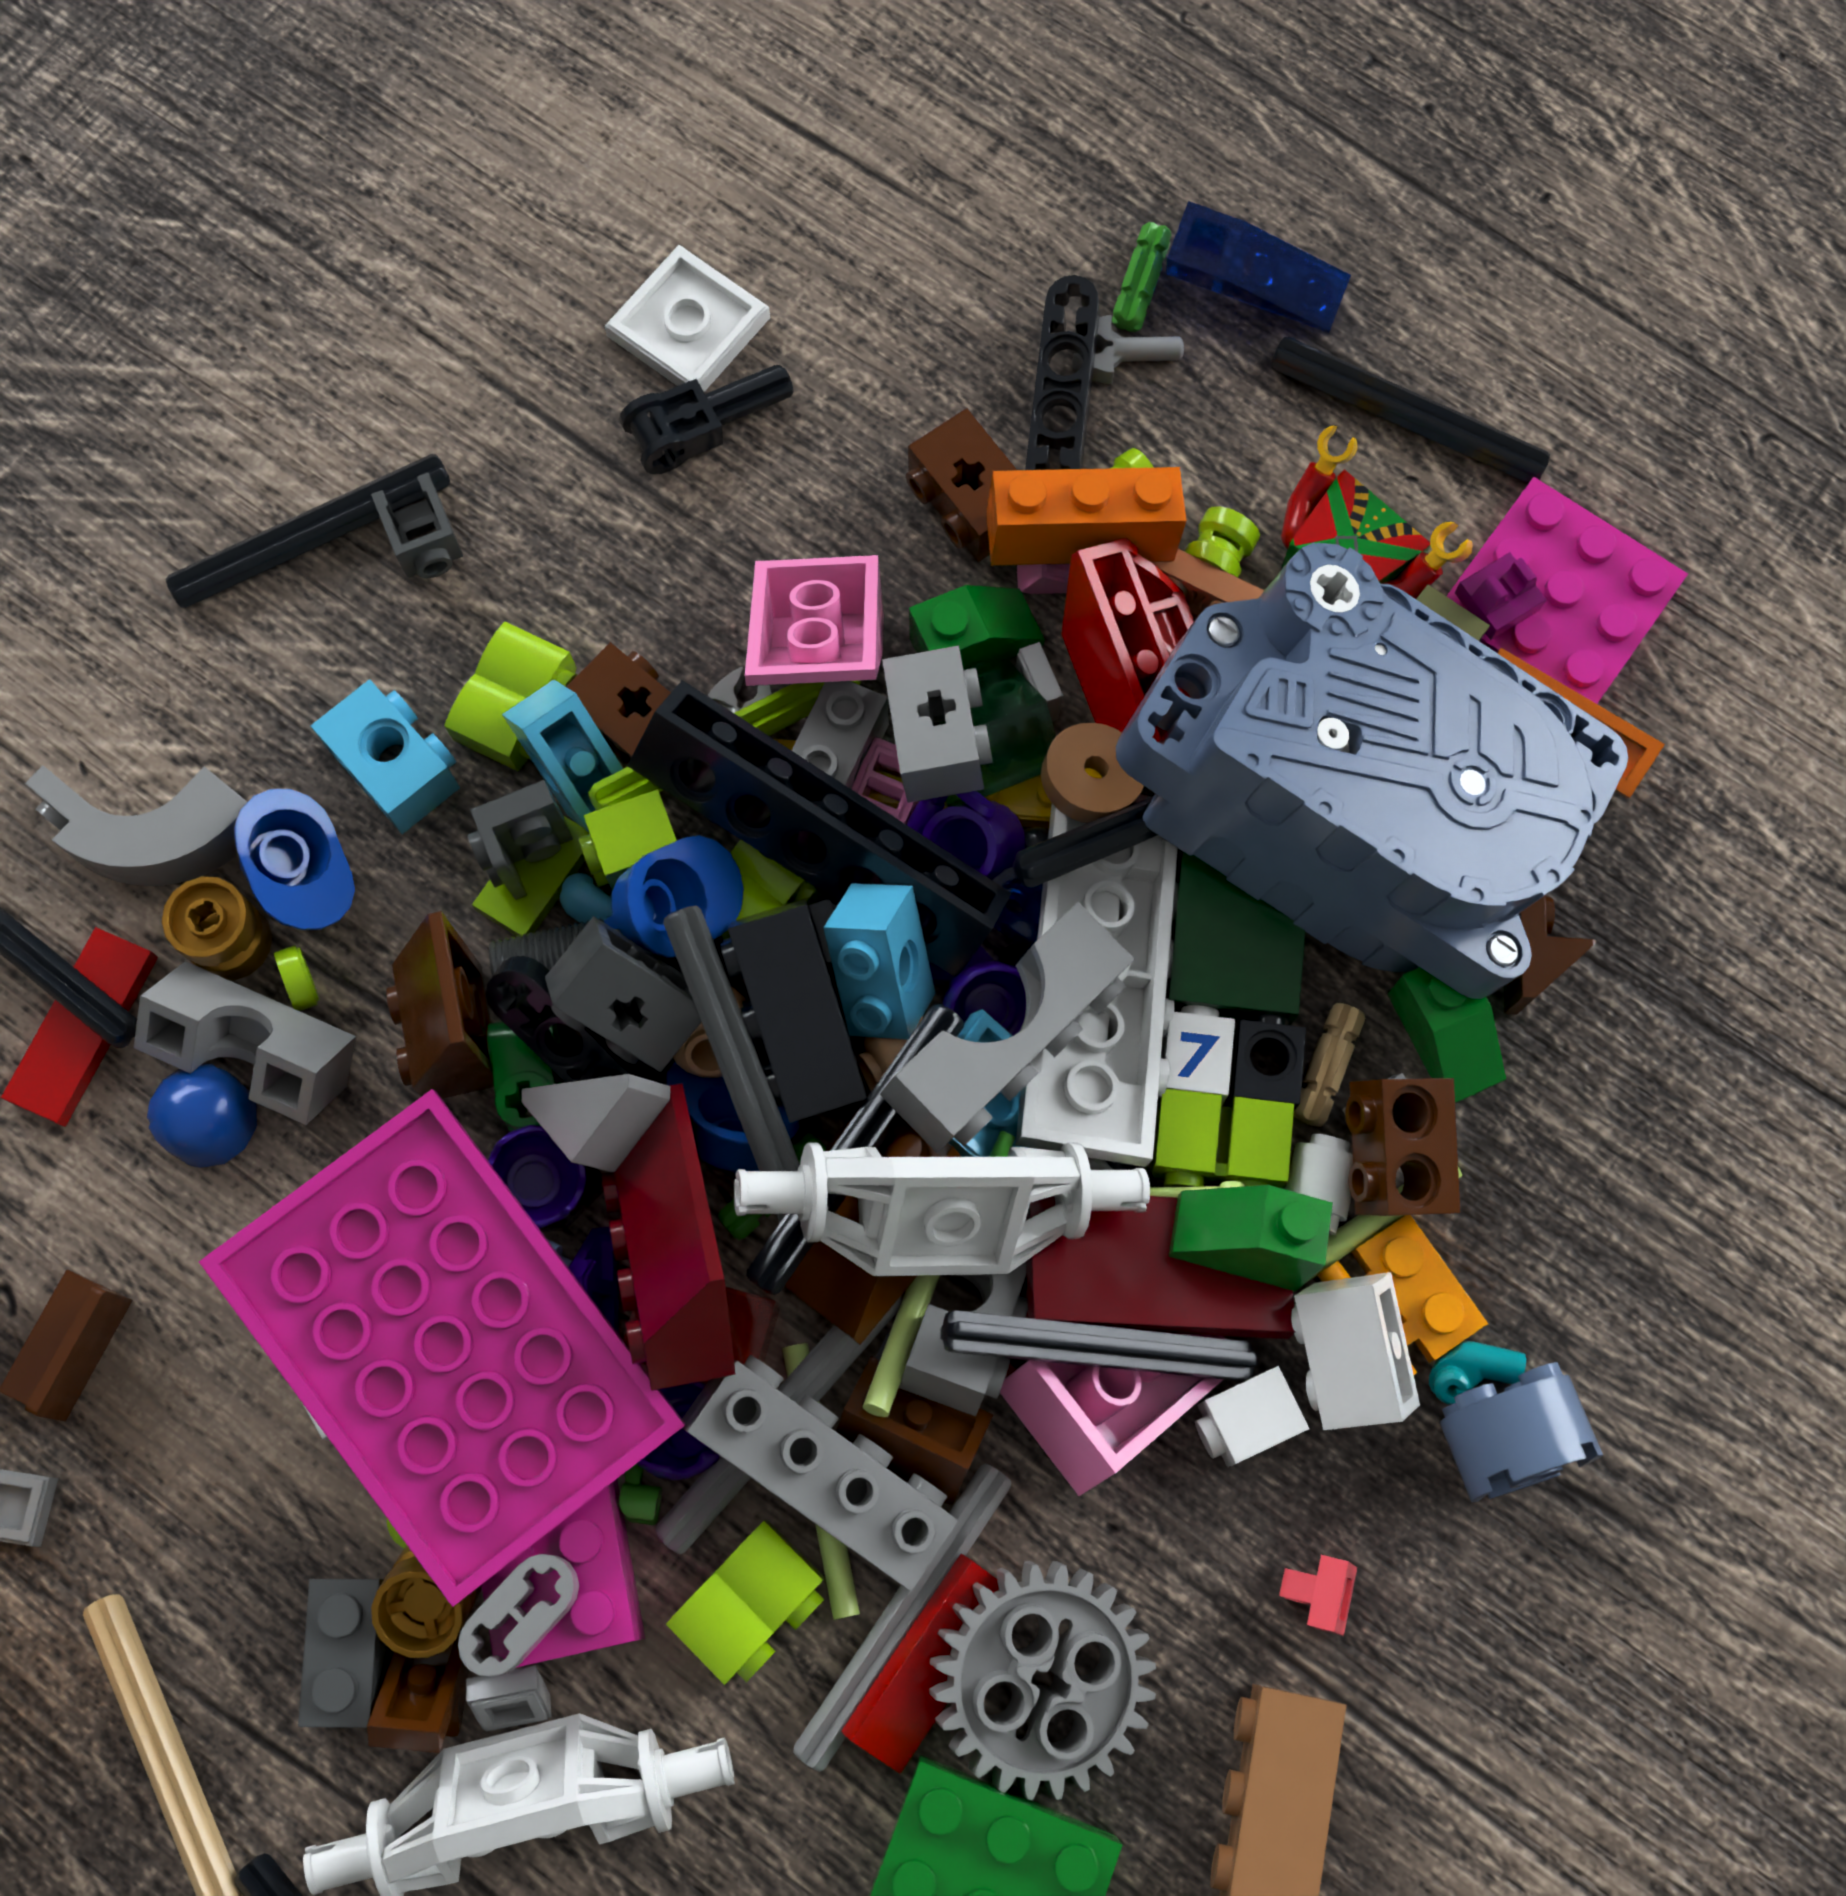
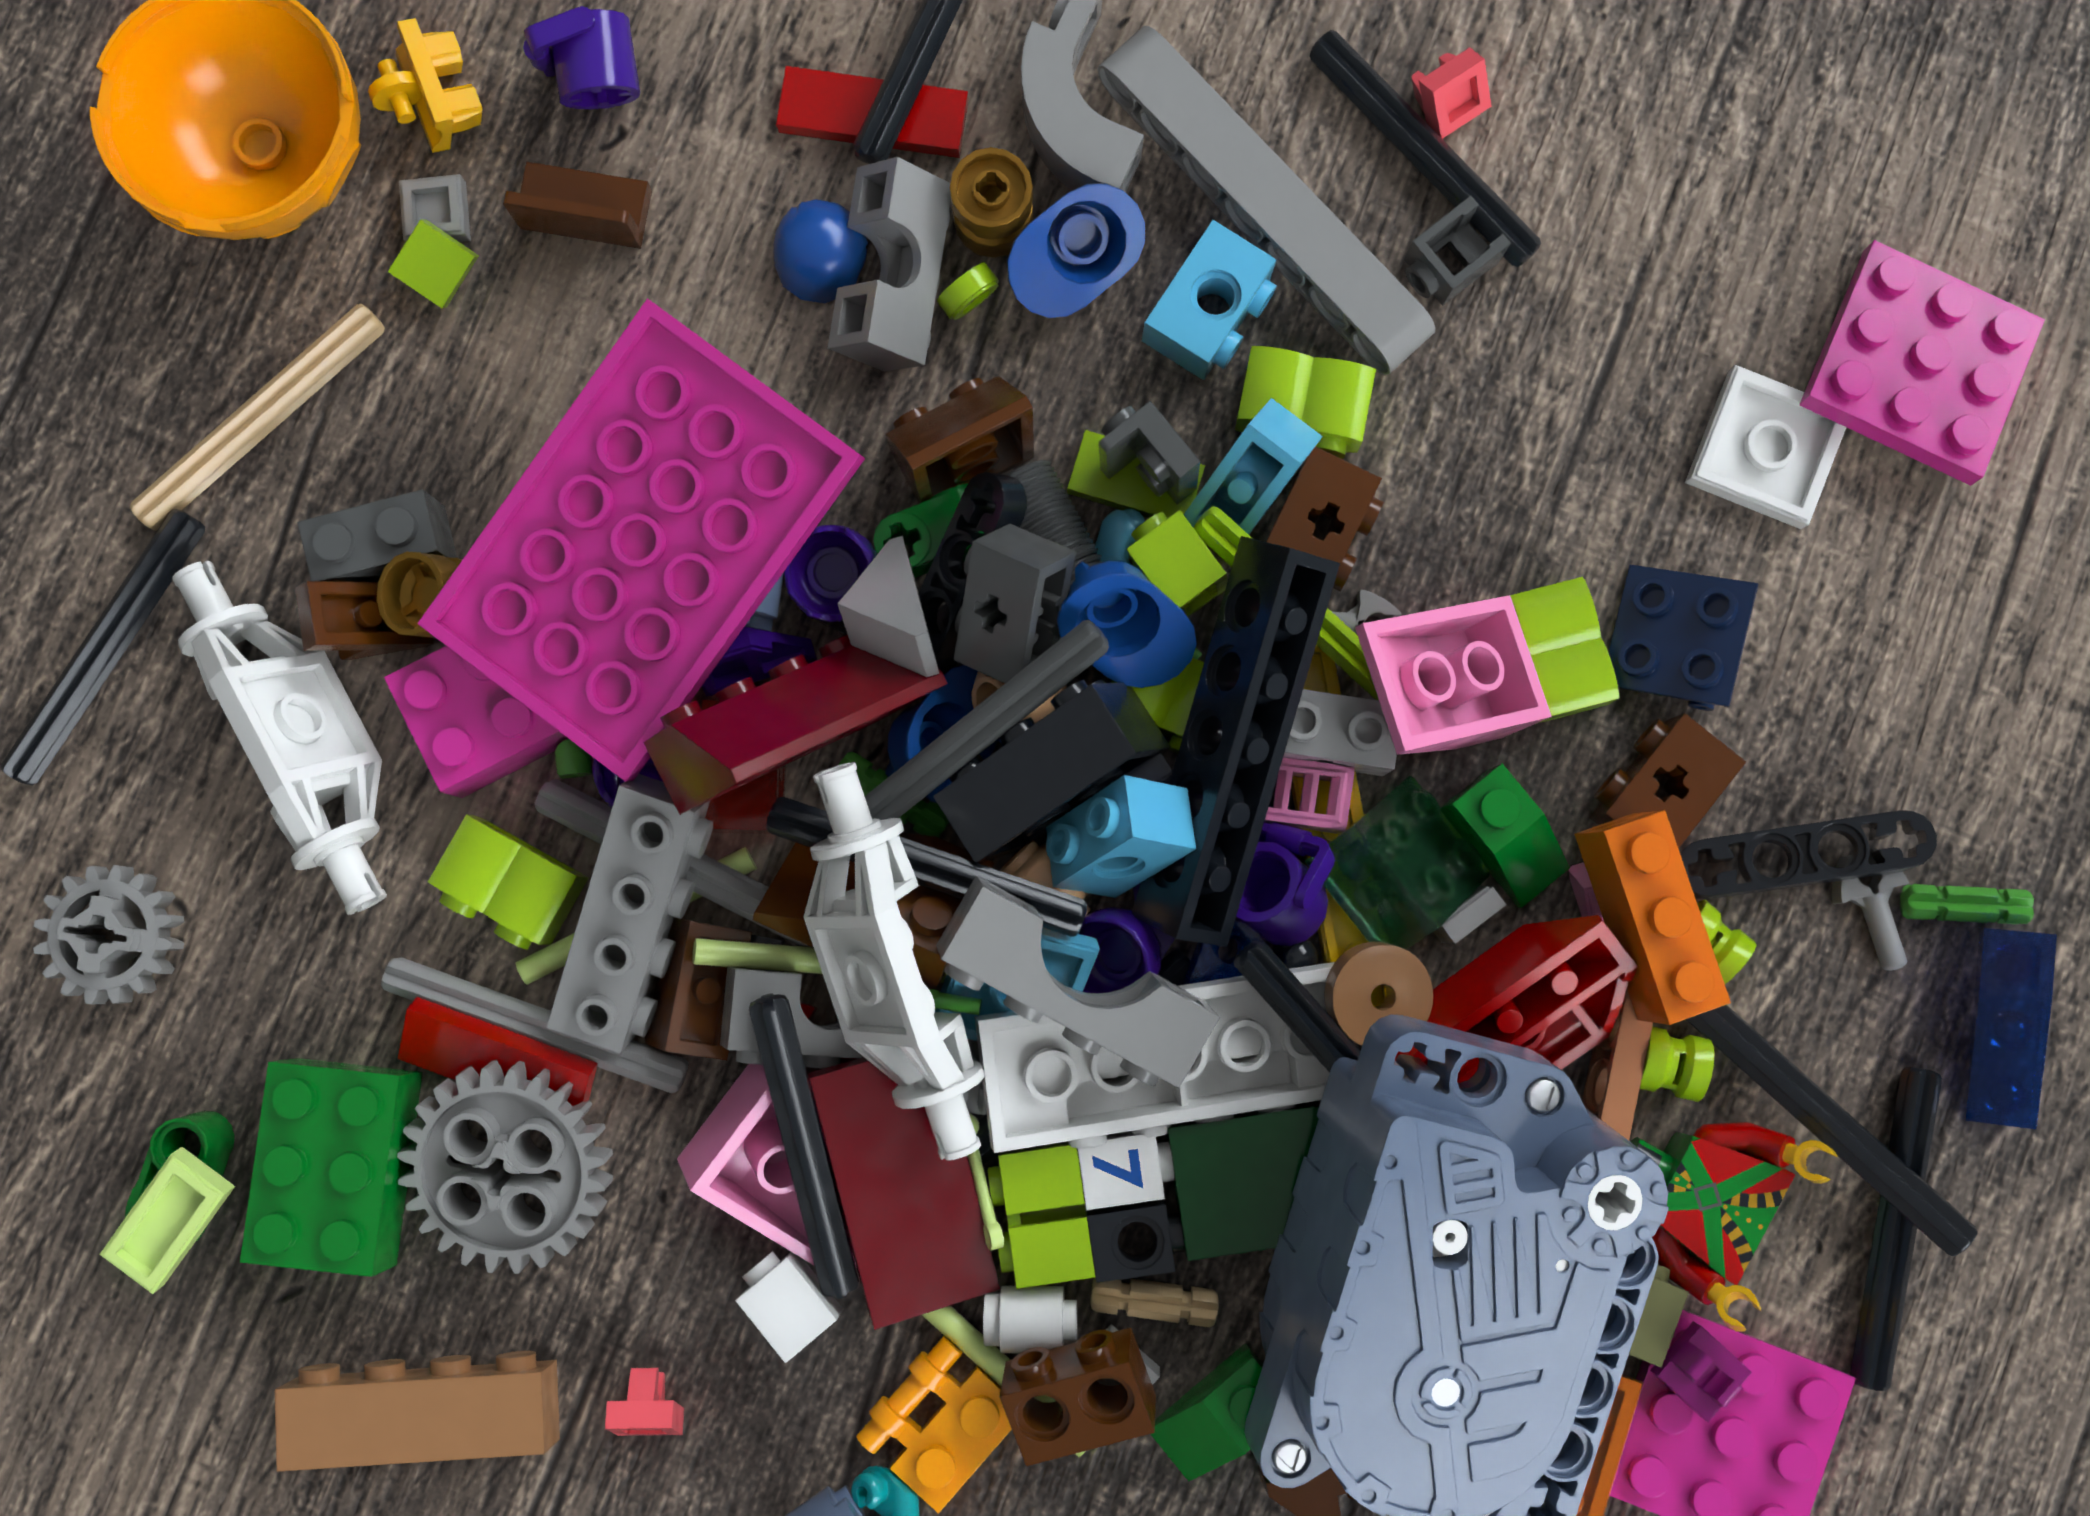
camera: 75 degrees right, 10 degrees up
(69, 1518) = (433, 263): none -> lime tile
(266, 489) = (1453, 91): none -> coral tile
(302, 681) = (1266, 200): none -> light grey beam
(509, 1699) = (373, 695): light grey tile -> none
(531, 1626) = (423, 696): light grey beam -> none
(654, 178) = (1922, 363): none -> dark pink plate
(691, 422) = (1656, 483): black connector -> none
(817, 527) = (1567, 647): none -> lime brick
(836, 437) = (1681, 635): none -> dark blue hinge
(930, 690) = (1400, 799): light grey brick -> none
(1253, 1233) = (952, 1266): green slope -> none
(1302, 433) = (1837, 1129): none -> black axle
(1355, 1352) = (870, 1391): white brick -> none

